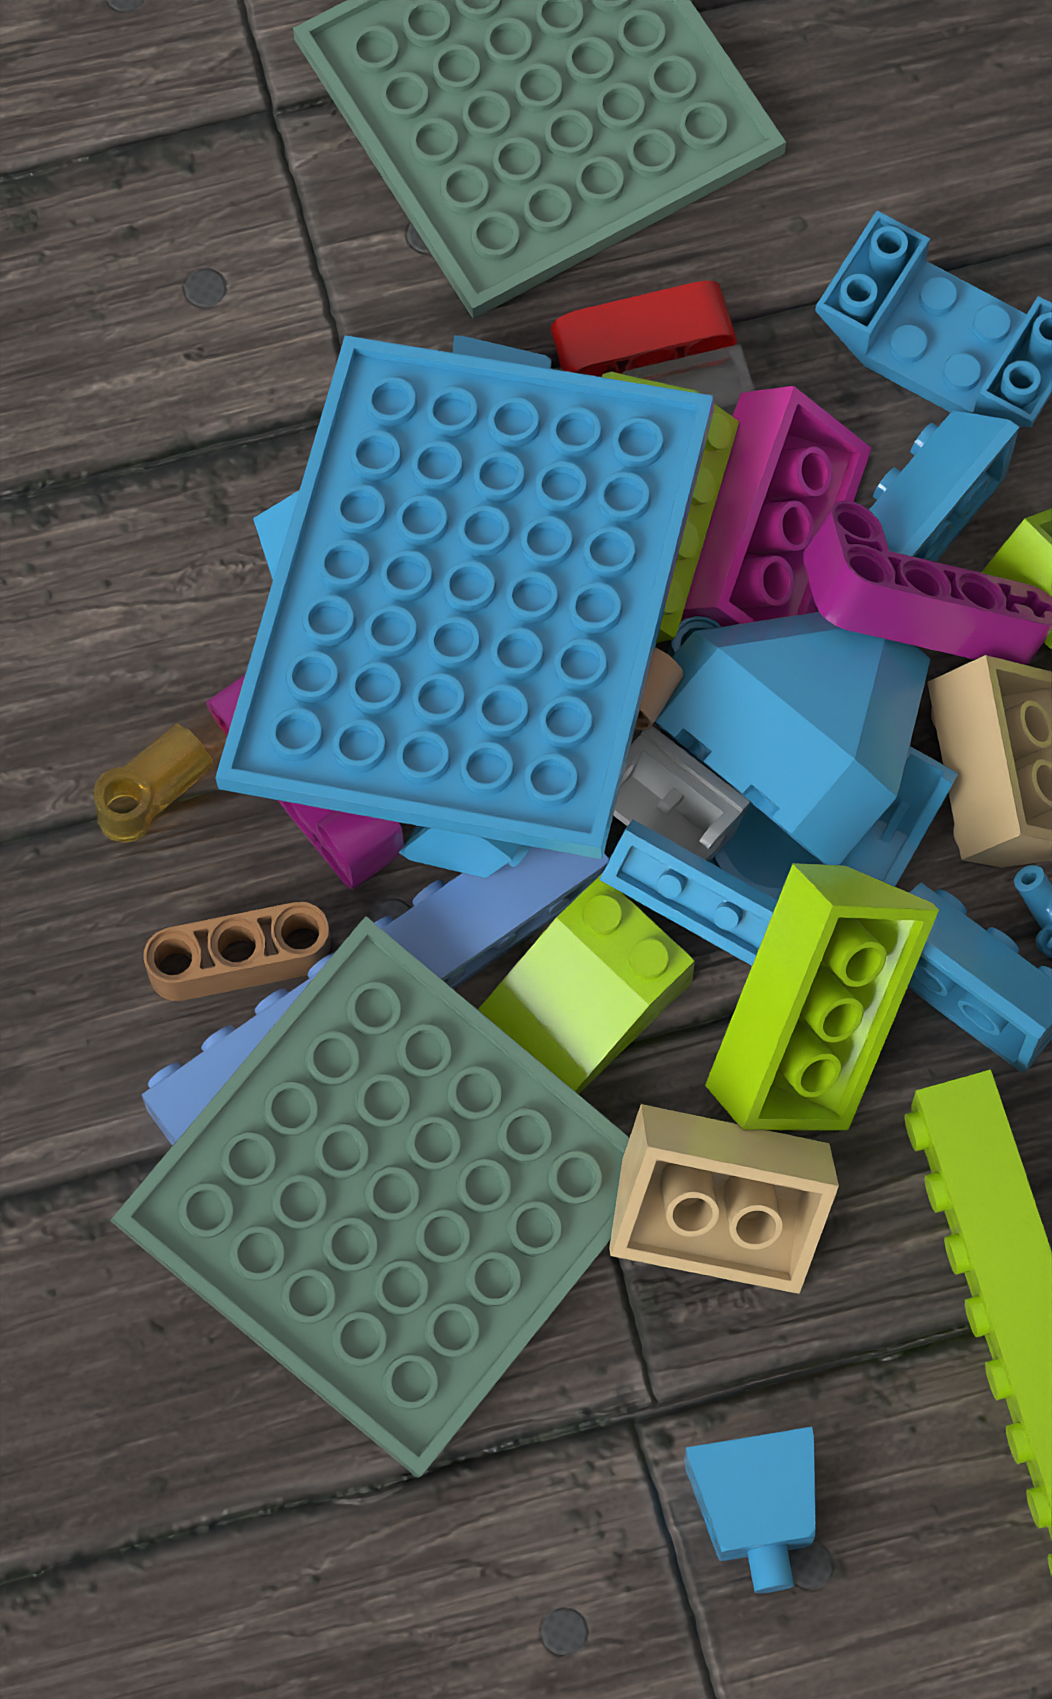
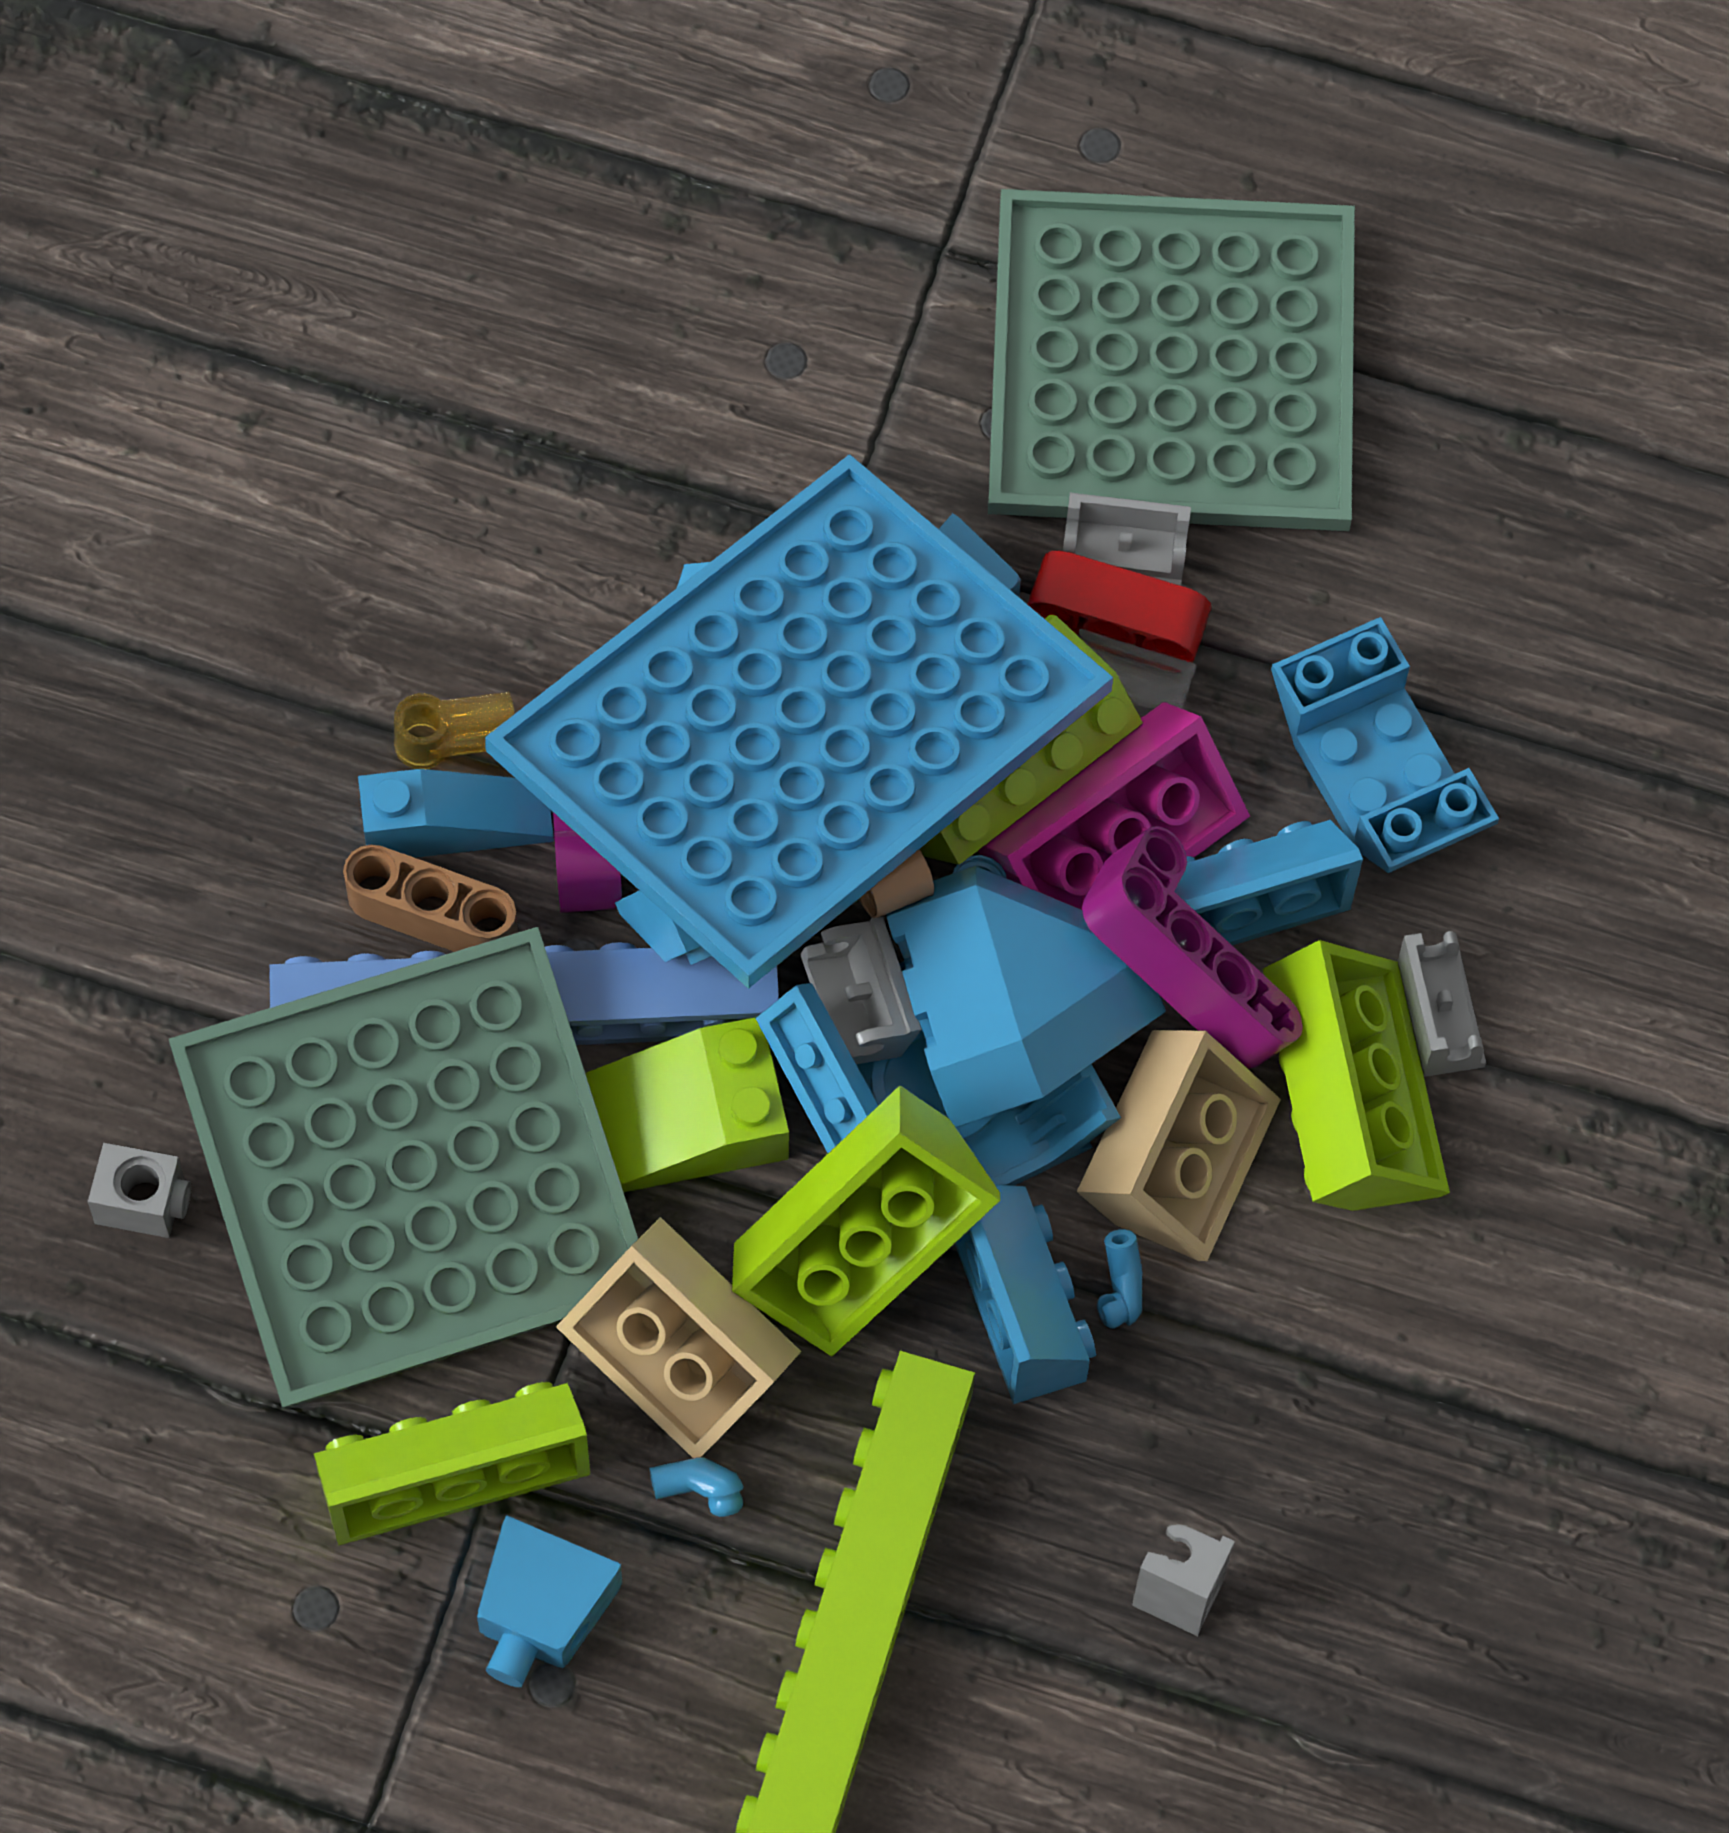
camera: 30 degrees right, 5 degrees down
(132, 1357) = (121, 1170): none -> light grey brick
(197, 862) = (450, 812): none -> dark azure slope
(601, 1428) = (453, 1461): none -> lime slope
(609, 266) = (1129, 534): none -> light grey hinge
(817, 1304) = (702, 1477): none -> dark azure arm

